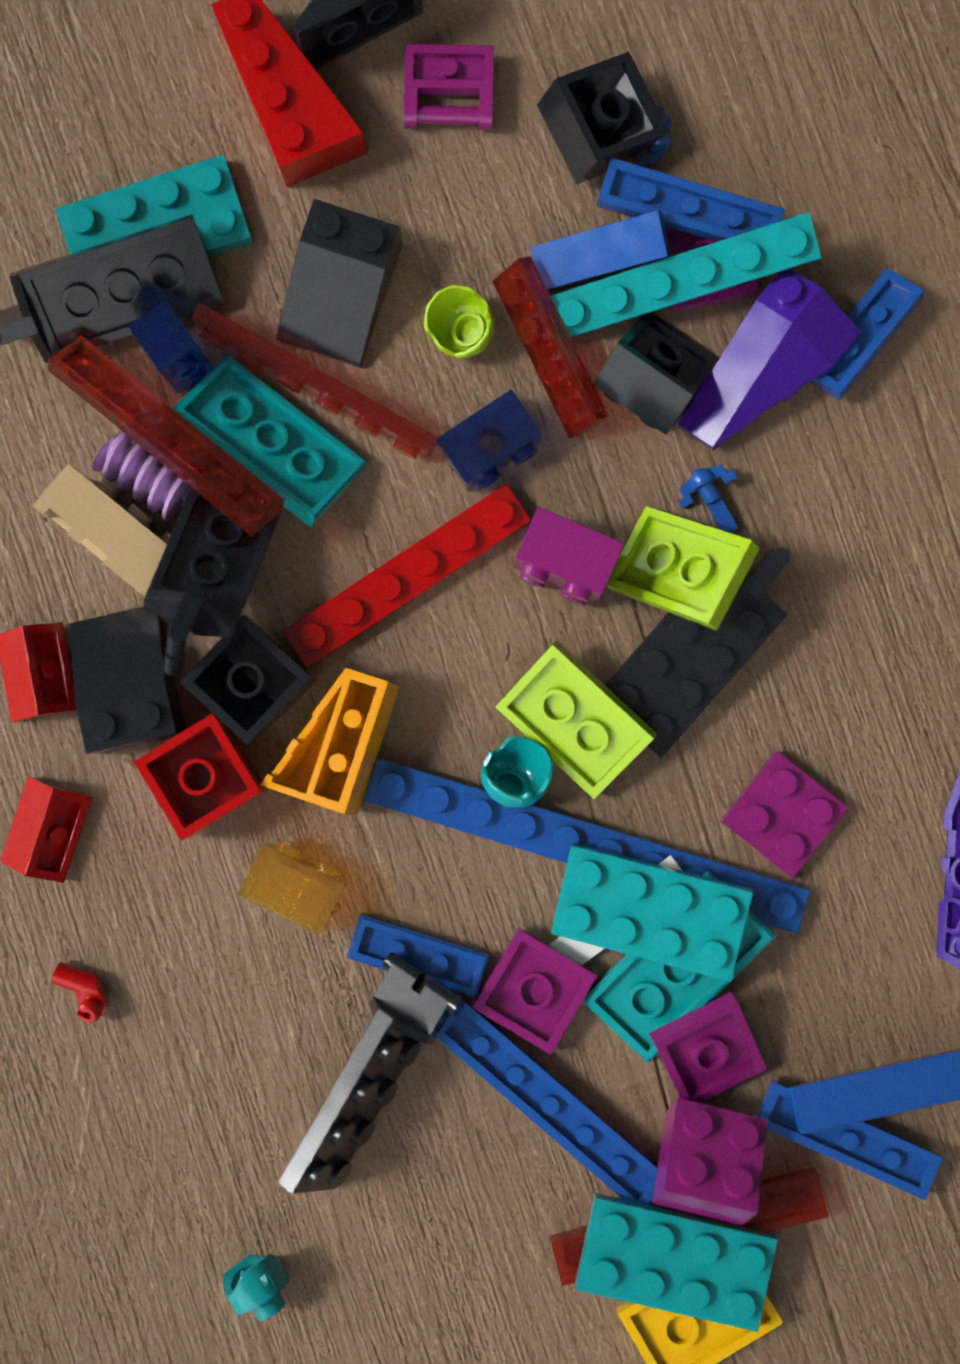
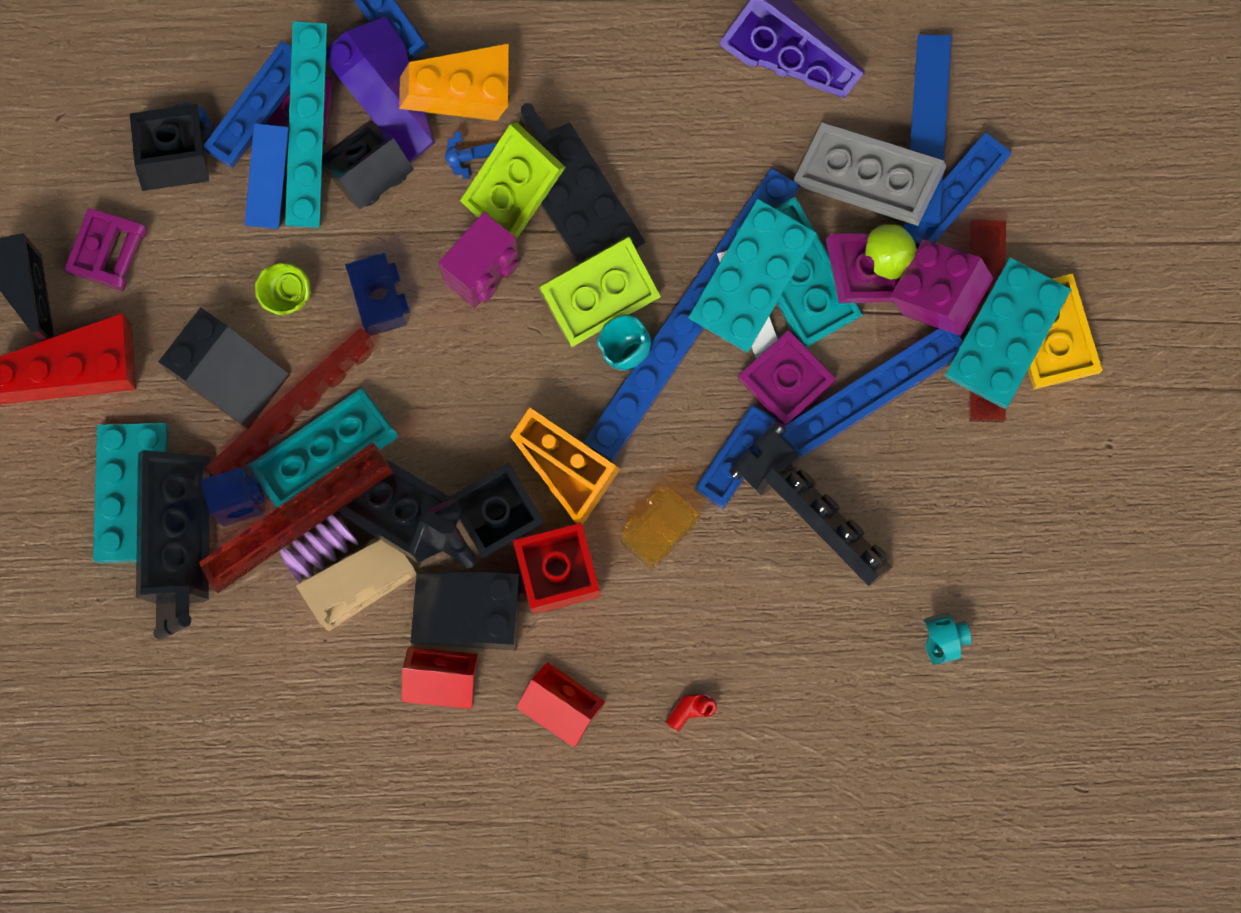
camera: 75 degrees left, 10 degrees down
(406, 576) = (455, 382): red plate -> none
(550, 347) = (322, 232): clear red plate -> none
(741, 1081) = (891, 250): none -> lime hair
(784, 814) = (712, 171): magenta plate -> none
(796, 455) = (458, 84): none -> light orange wedge
(837, 1025) = (870, 173): none -> light grey plate

